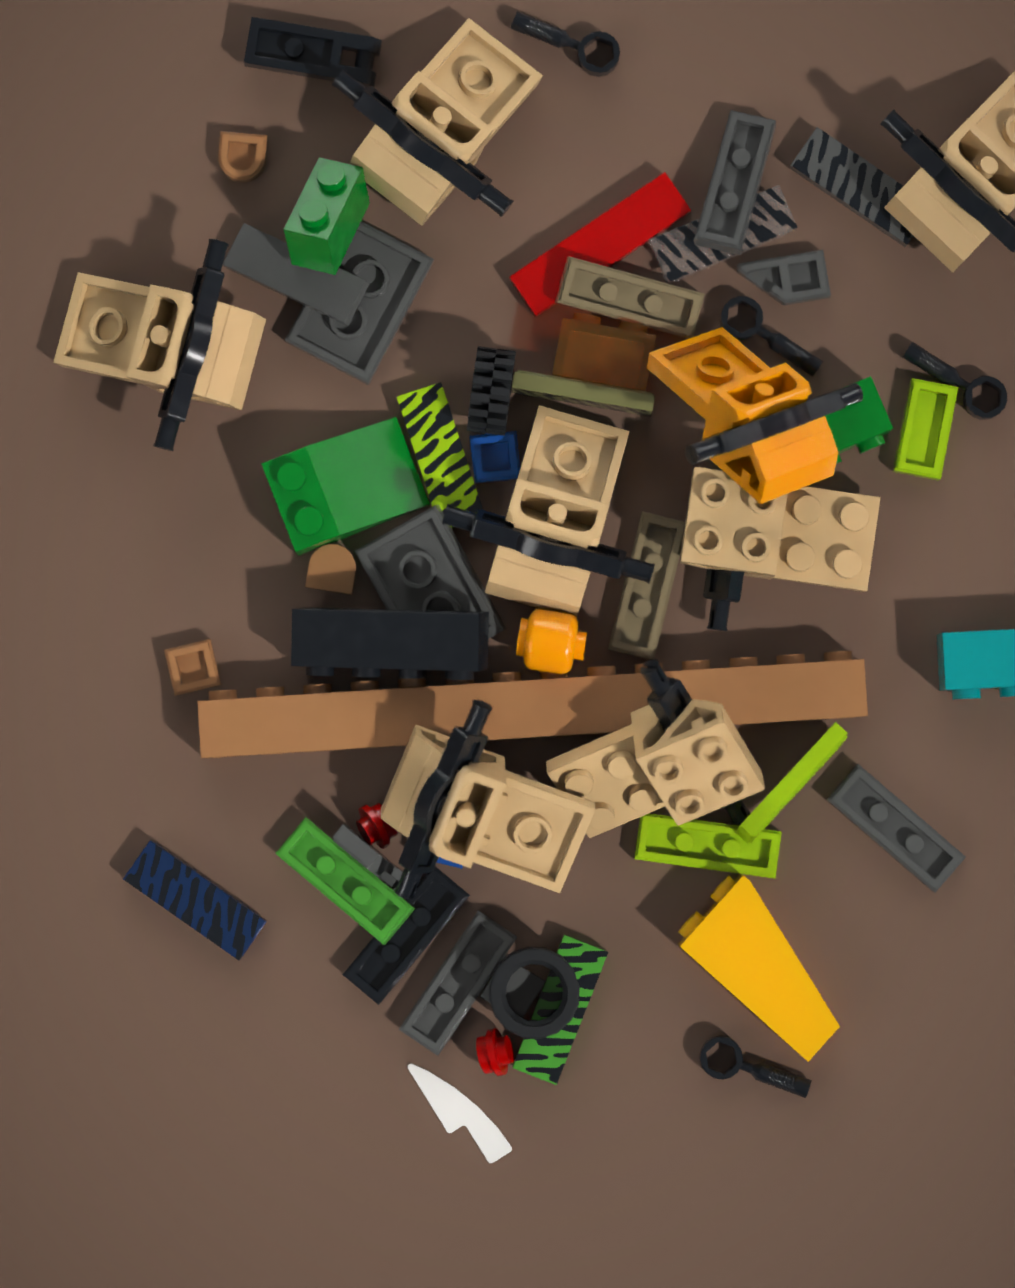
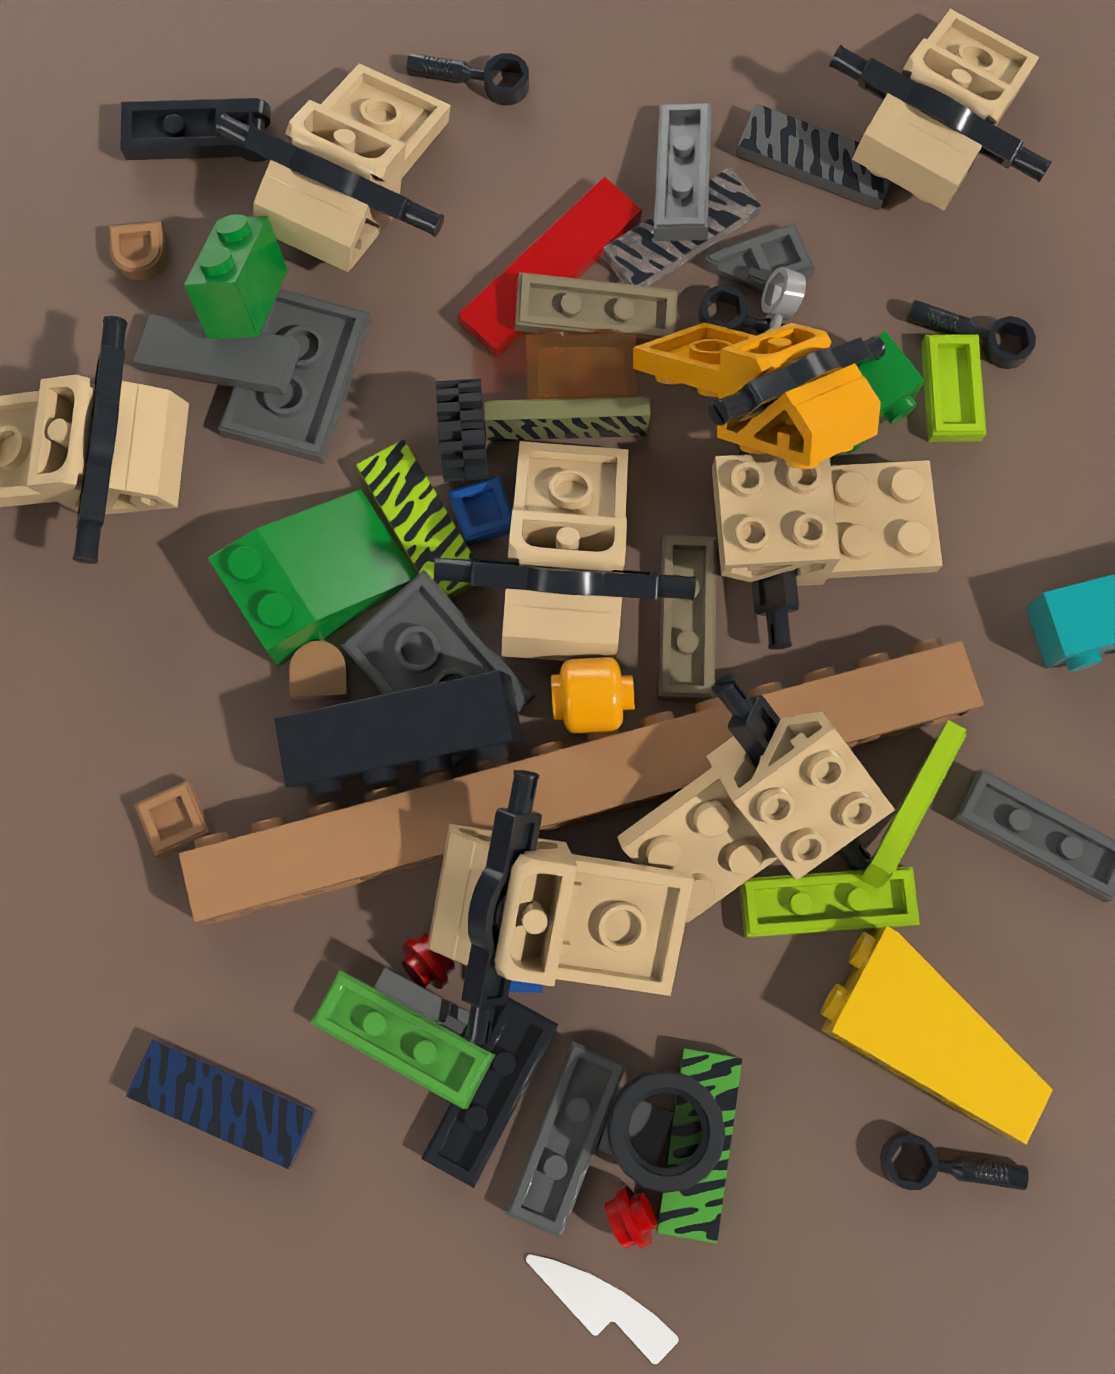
camera: 15 degrees left, 10 degrees down
(792, 324) = (782, 295): none -> light grey piece

